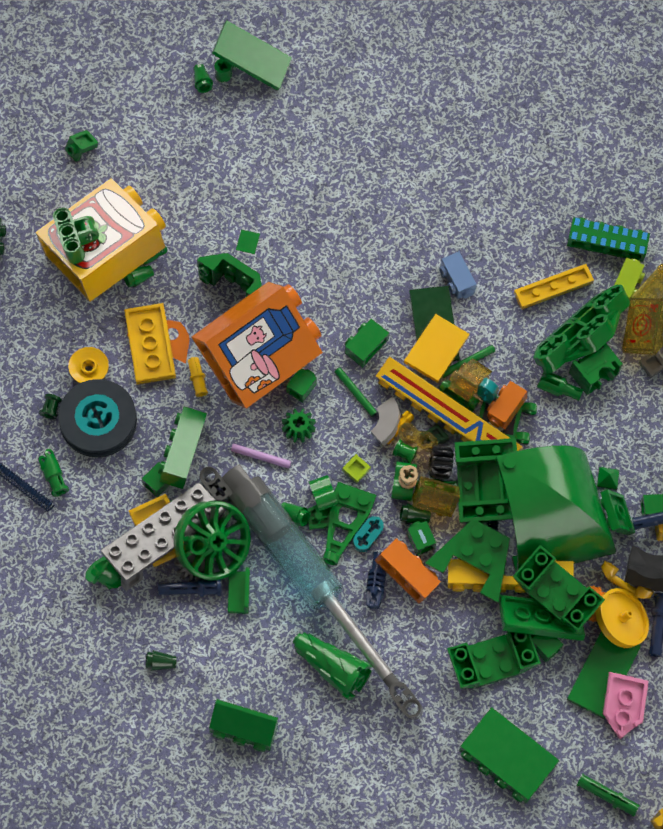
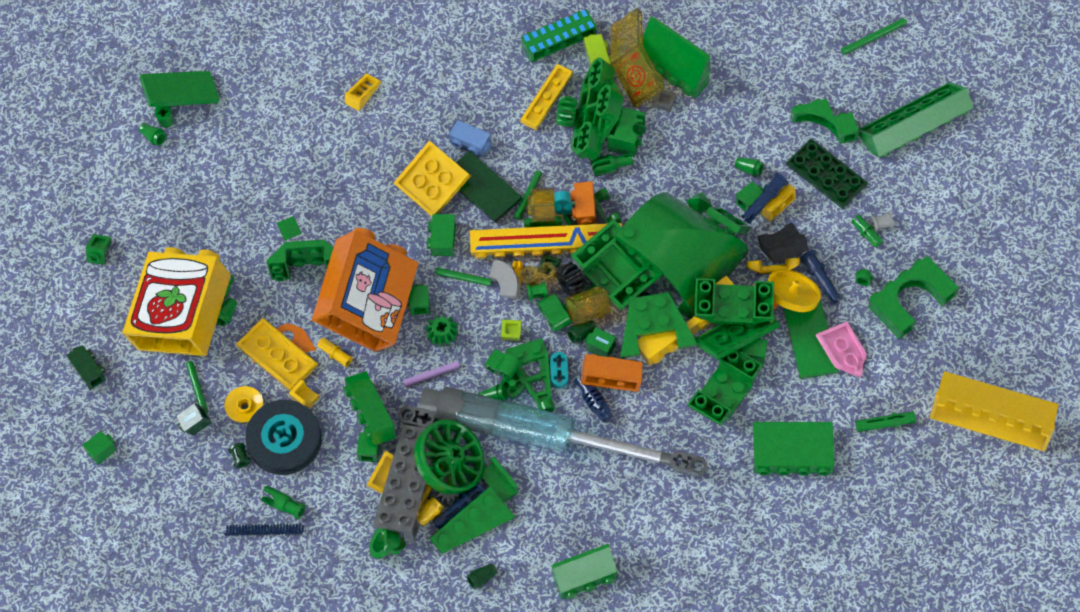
camera: 30 degrees left, 5 degrees down
(38, 348) = (193, 419): none -> brick
(64, 322) = (196, 384): none -> green bar
(74, 233) = (156, 309): green piece -> none
(142, 395) = (303, 394): none -> yellow panel
(163, 572) = (429, 511): none -> yellow cone
(195, 609) = (473, 520): none -> green wing
(336, 666) = (621, 479): green cone -> none
(392, 172) = (355, 100): none -> yellow slope
(396, 287) = (431, 179): none -> yellow plate
(405, 472) = (561, 301): tan bush -> none
(436, 348) = (499, 200): yellow tile -> none
(558, 312) = (566, 111): none -> green gear

